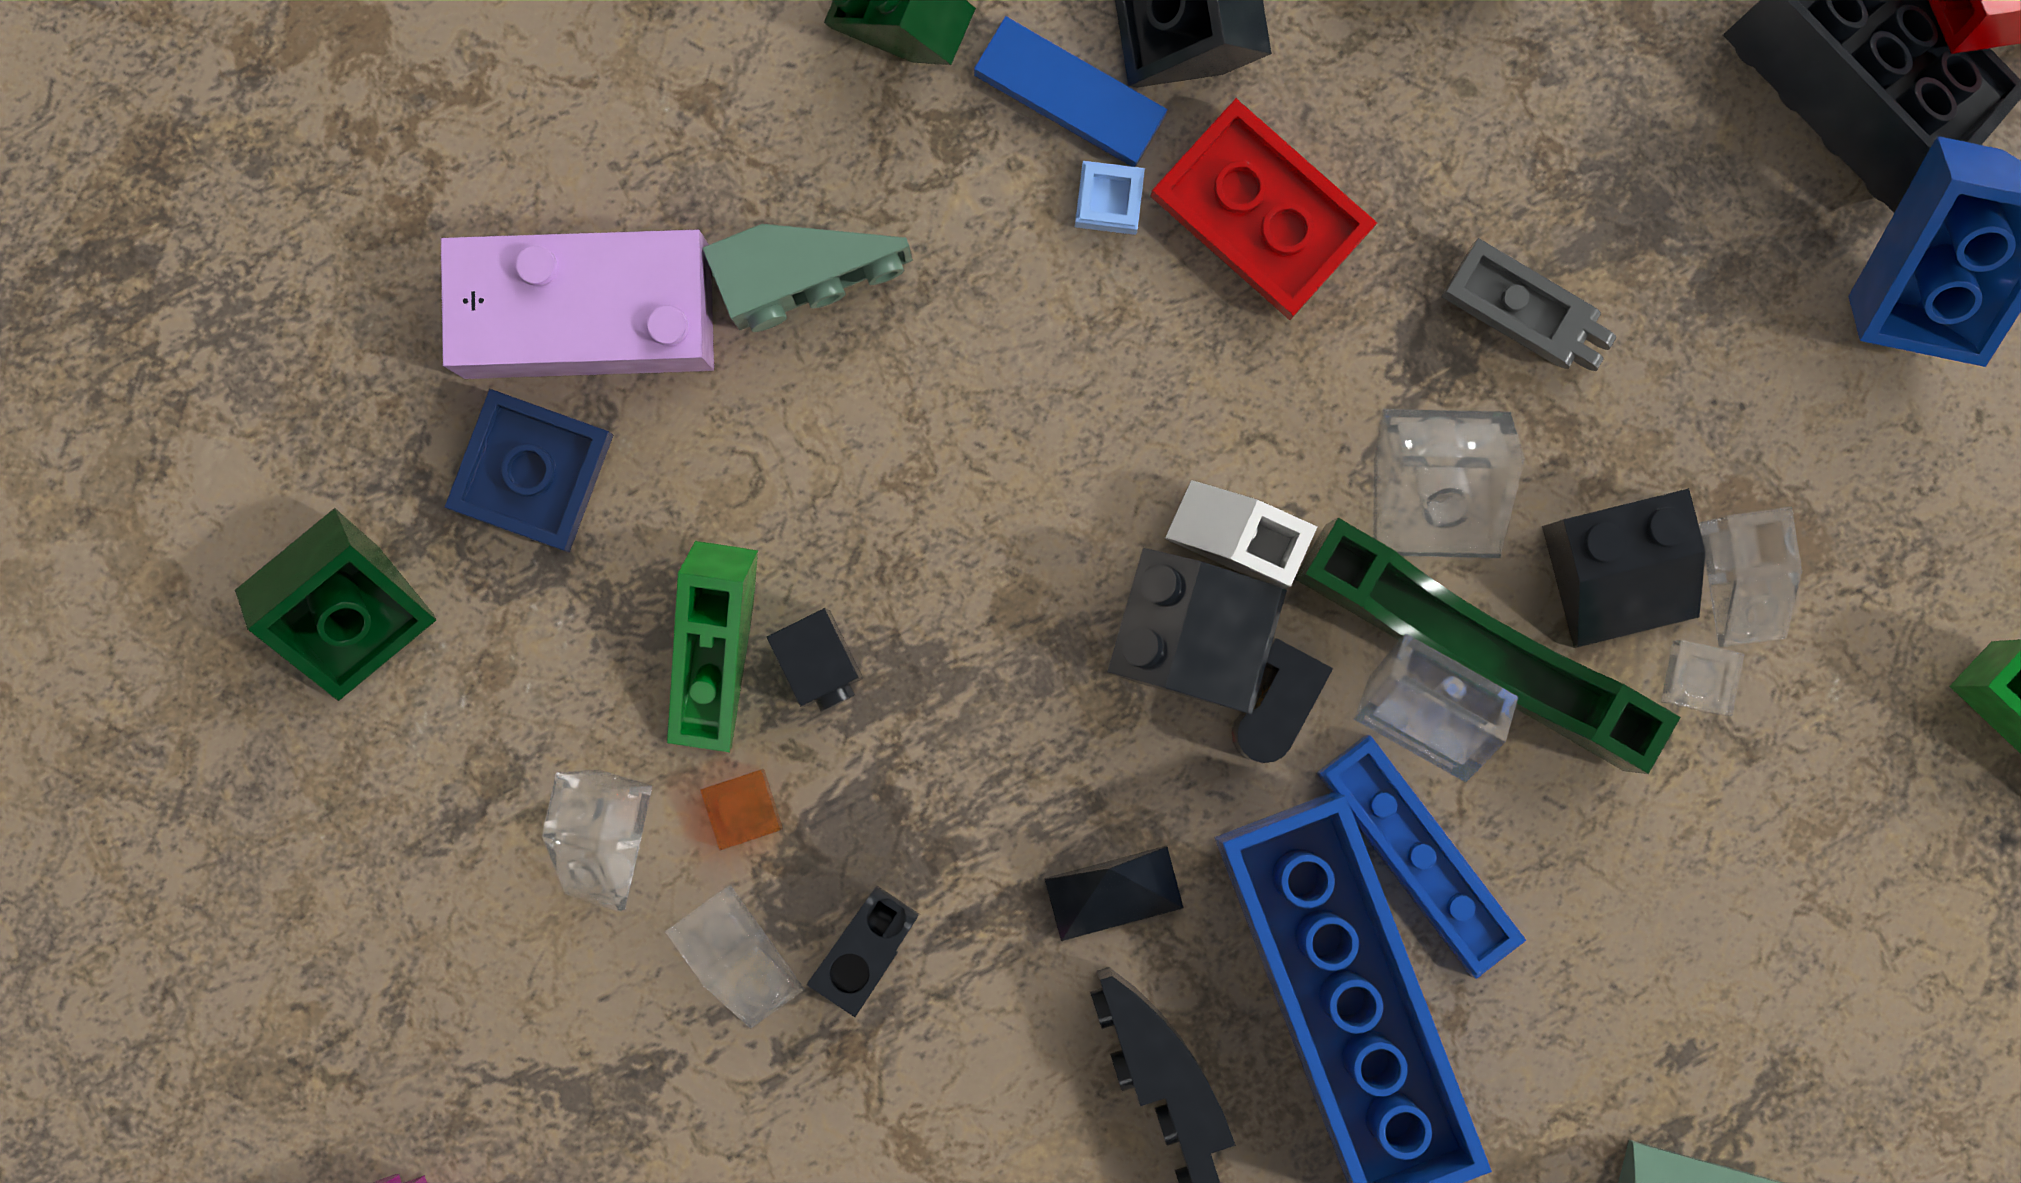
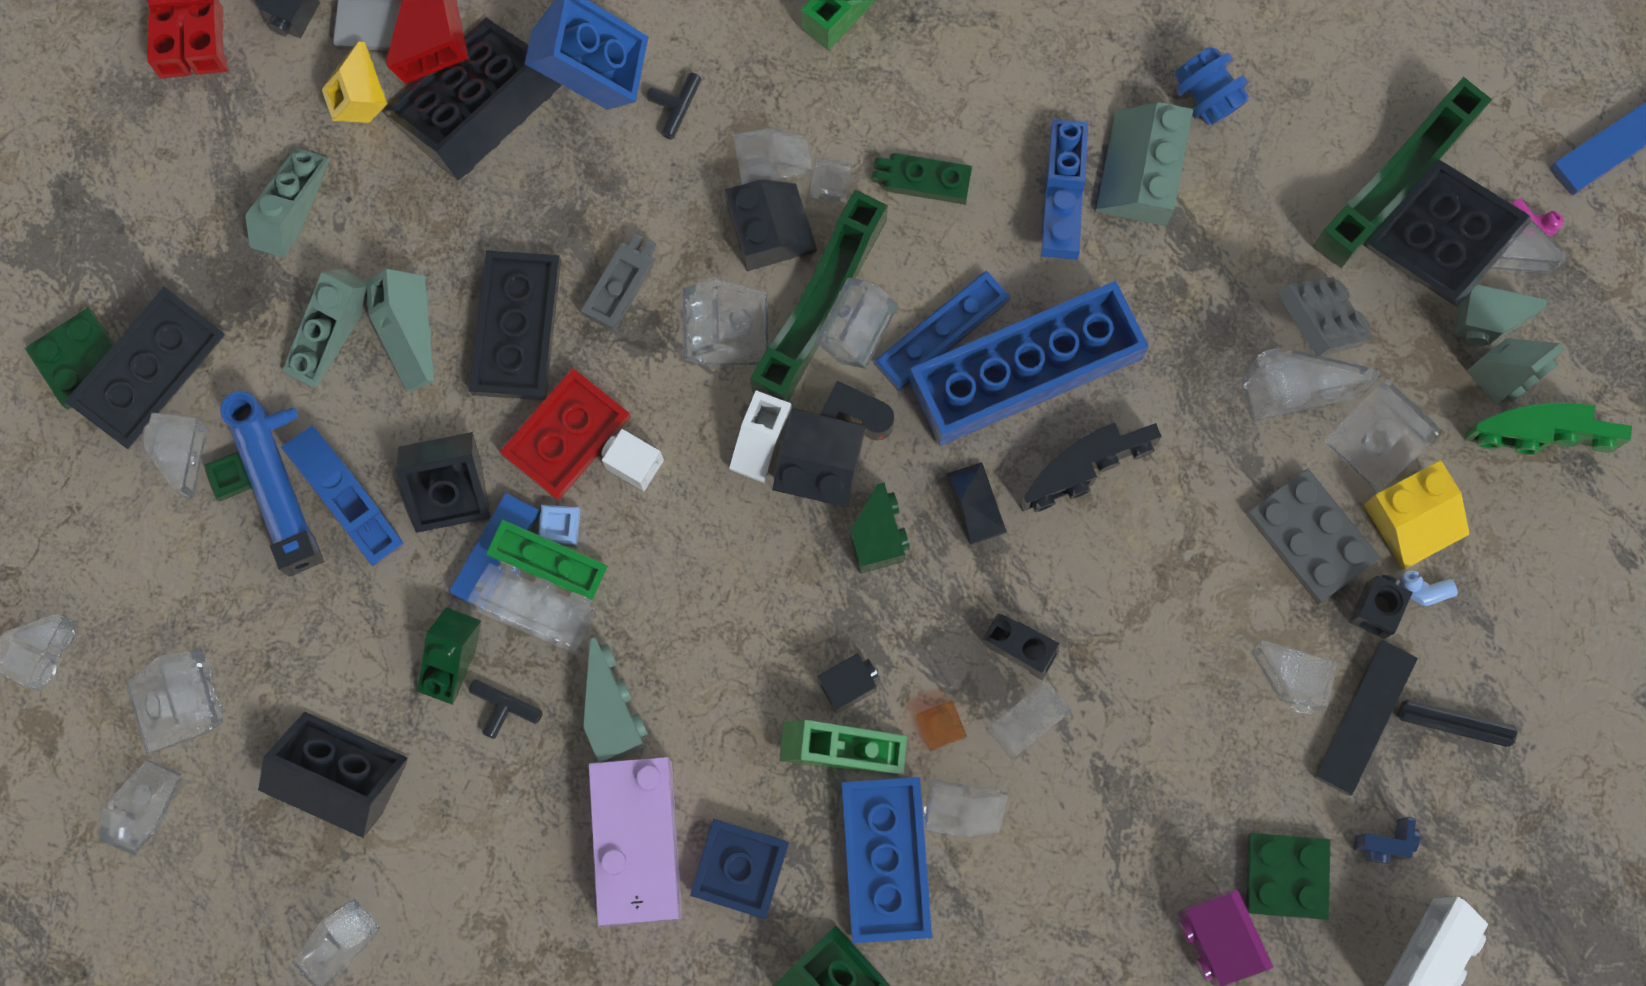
camera: 90 degrees left, 10 degrees down
(528, 706) = (886, 860): none -> blue plate
(817, 104) = (503, 704): none -> black piece
(963, 143) = (533, 607): none -> clear slope
(1046, 172) = (546, 560): none -> green plate
(1068, 720) = (876, 535): none -> dark green slope
(1213, 316) = (631, 459): none -> white brick
(1459, 130) = (515, 325): none -> black plate
(1671, 1090) = (1064, 189): none -> blue slope
(1702, 841) = (923, 177): none -> dark green hinge
(1854, 417) = (677, 105): none -> black piece

